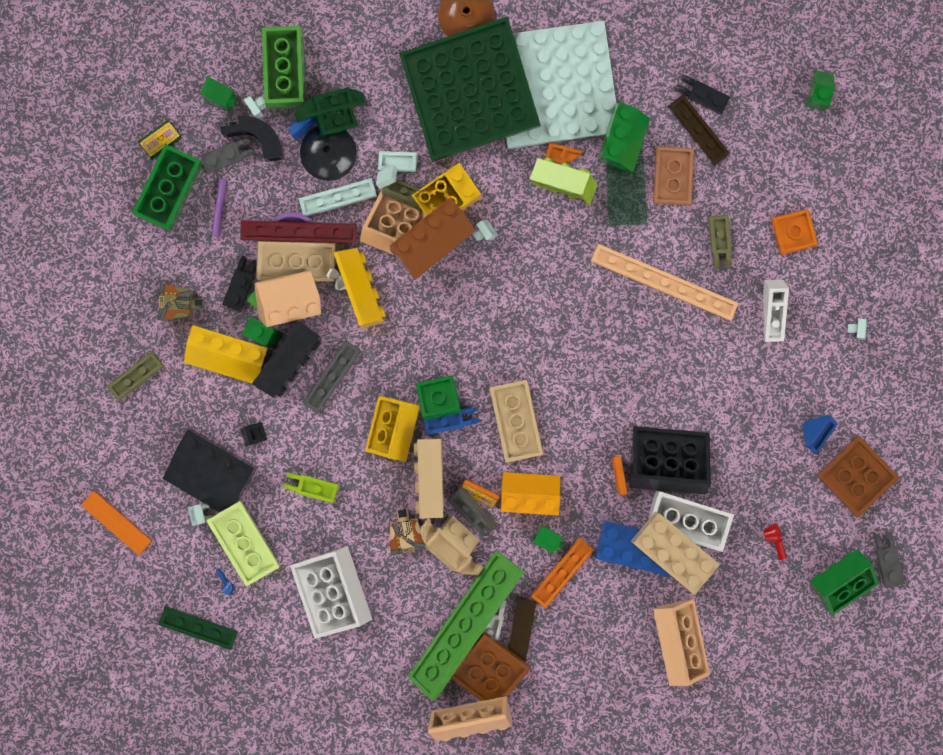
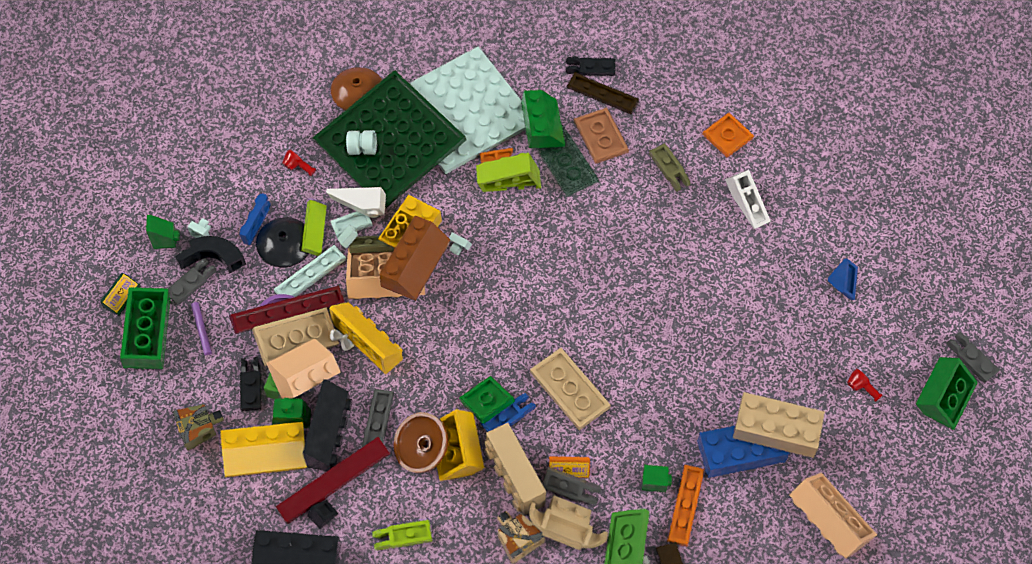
camera: 25 degrees left, 25 degrees down
(135, 376) = (180, 512): olive tile -> none
(273, 410) = (332, 480): none -> dark red tile
(283, 67) = (213, 188): bright green brick -> none
(332, 110) = (273, 202): dark green plate -> none
(353, 413) = (412, 439): none -> dark orange dish
(360, 152) = (314, 228): none -> lime tile
(369, 70) = (292, 160): none -> red bar
(417, 150) = (363, 200): none -> white slope
(438, 85) = (361, 142): none -> light aqua wheel
(530, 493) = (618, 447): light orange slope -> none
(619, 475) = (690, 392): orange tile -> none
(664, 282) = (640, 219): light nougat tile -> none
(670, 460) = (729, 360): black slope -> none
(696, 521) = (791, 389): white slope -> none
(821, 91) = (687, 25): green slope -> none
(857, 476) = (901, 300): dark orange plate -> none
(860, 329) = (827, 183): light aqua tile -> none

